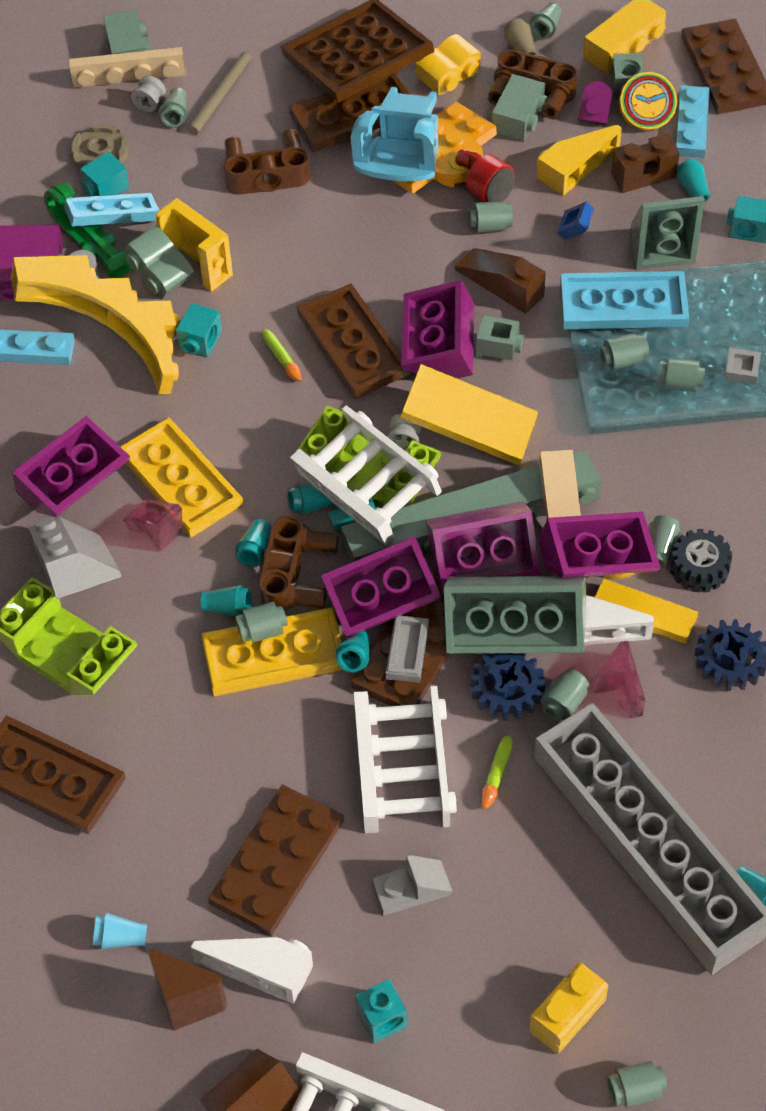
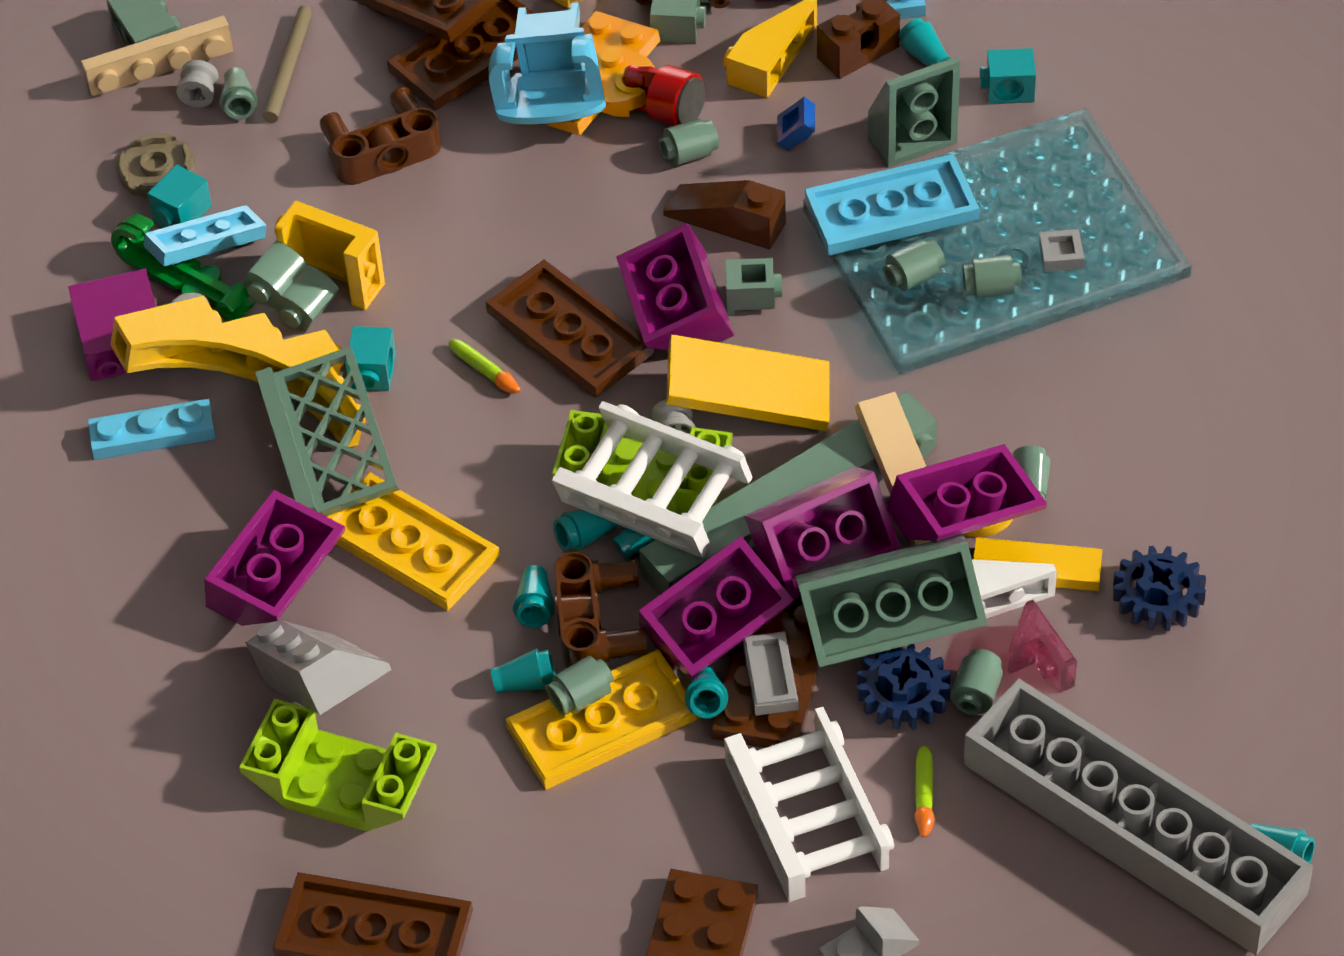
camera: 15 degrees left, 5 degrees down
(115, 381) = (291, 436): none -> sand green fence
(158, 519) = (403, 594): clear pink slope -> none
(692, 551) = (1085, 489): black wheel -> none

